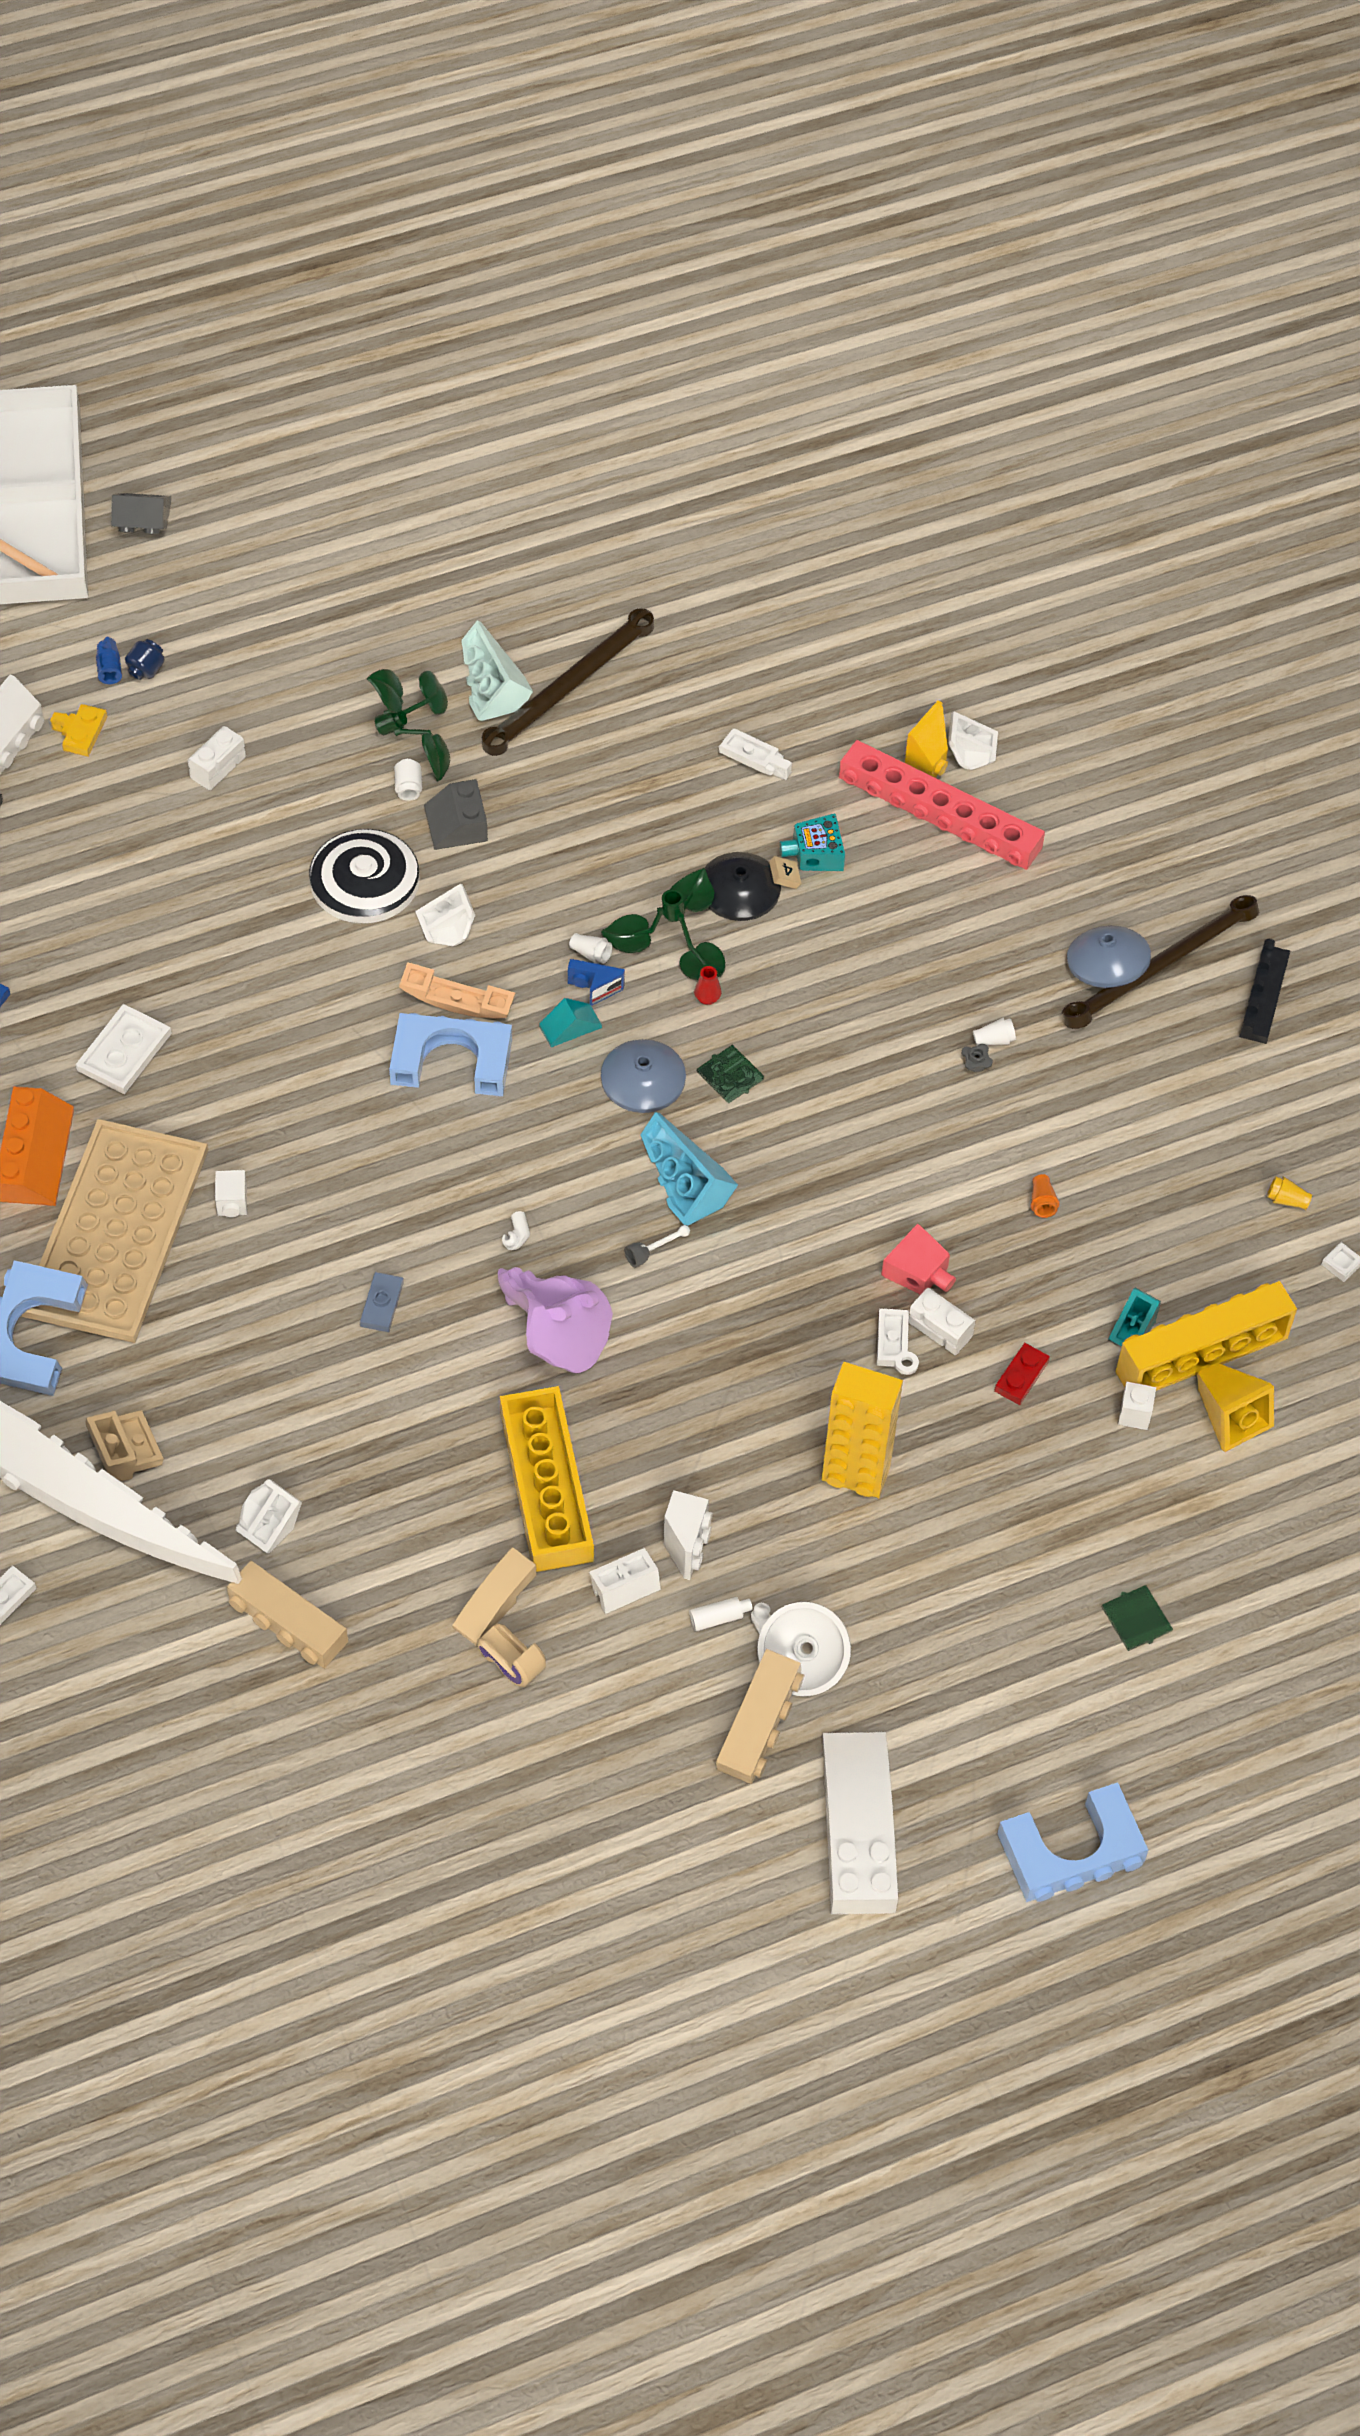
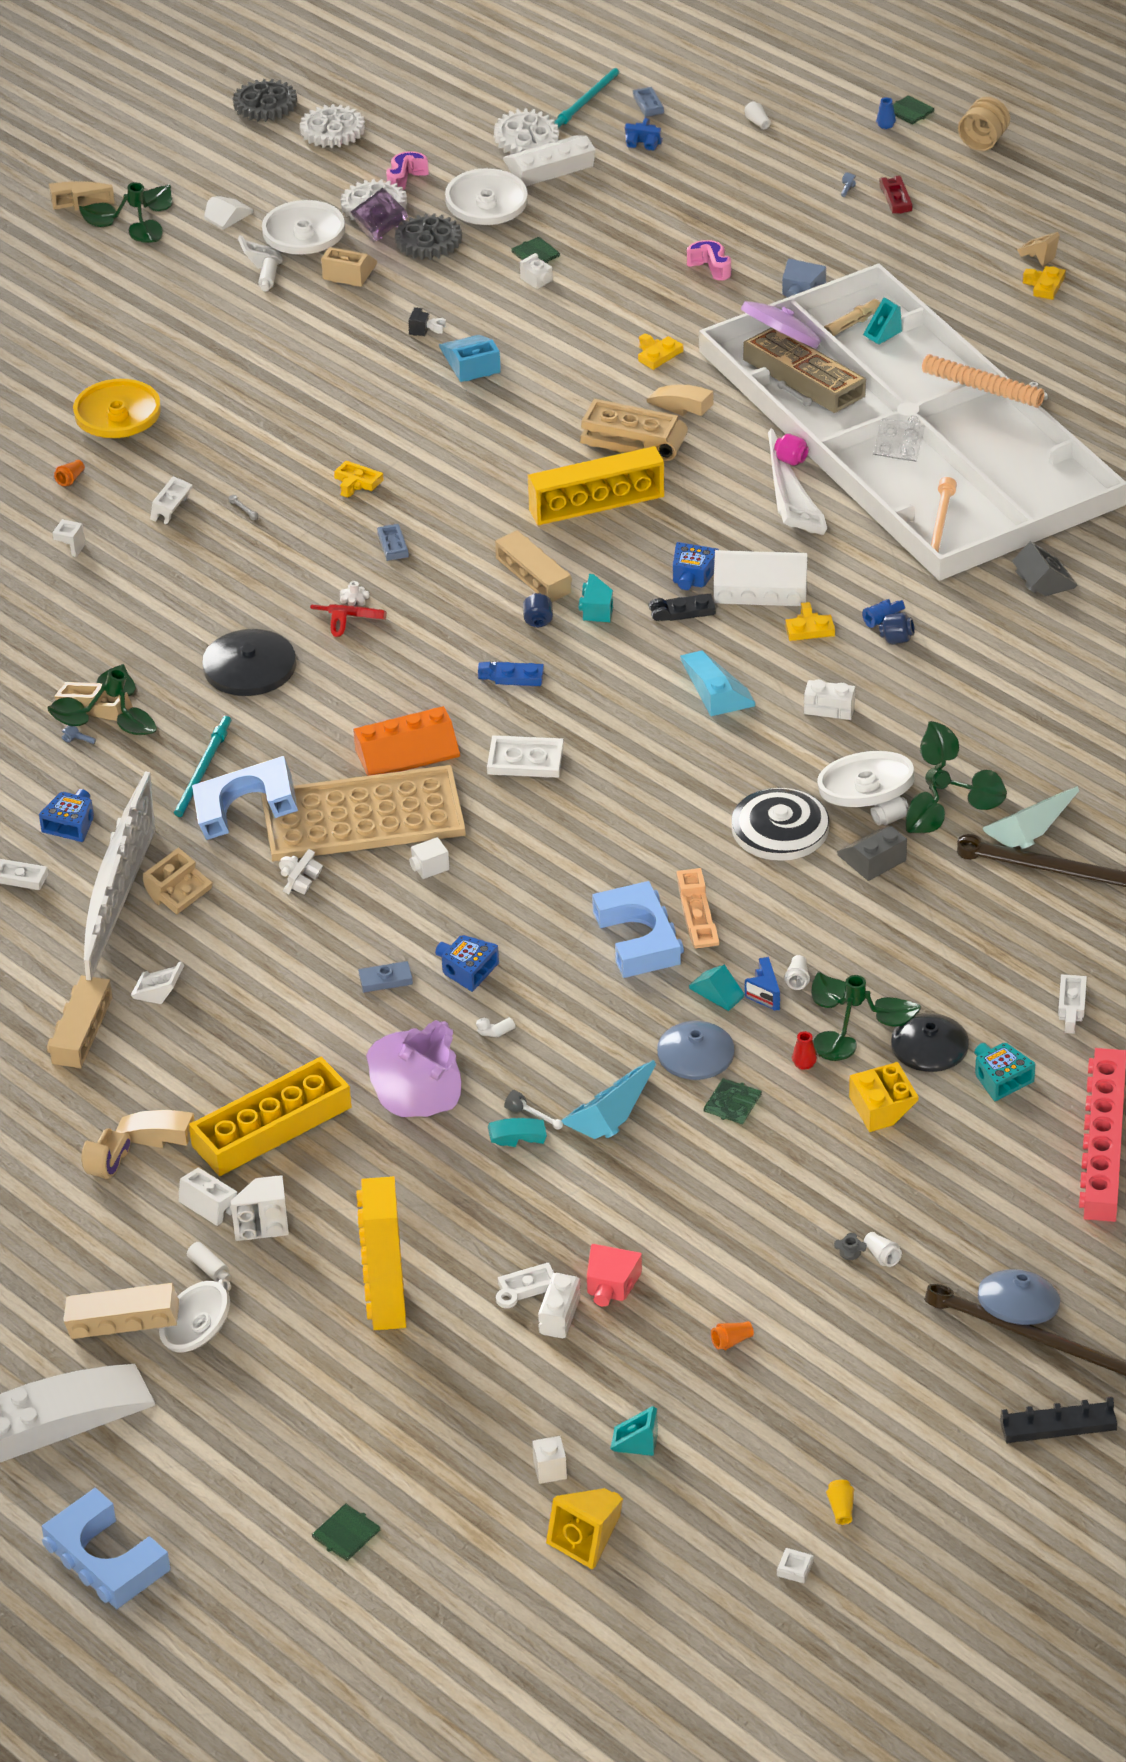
camera: 70 degrees right, 15 degrees down
(126, 843) = (715, 685): none -> medium azure wedge
(174, 1322) = (296, 870): none -> white hips
(360, 776) = (866, 778): none -> white dish
(409, 1218) = (468, 960): none -> blue torso
(447, 918) = (767, 880): white slope -> none
(681, 1268) = (509, 1131): none -> teal slope
(785, 872) = (958, 1060): tan tile -> none
(804, 949) = (881, 1095): none -> yellow slope
(1022, 1373) = (544, 1380): red plate -> none
(1208, 1337) = (643, 1481): yellow brick -> none

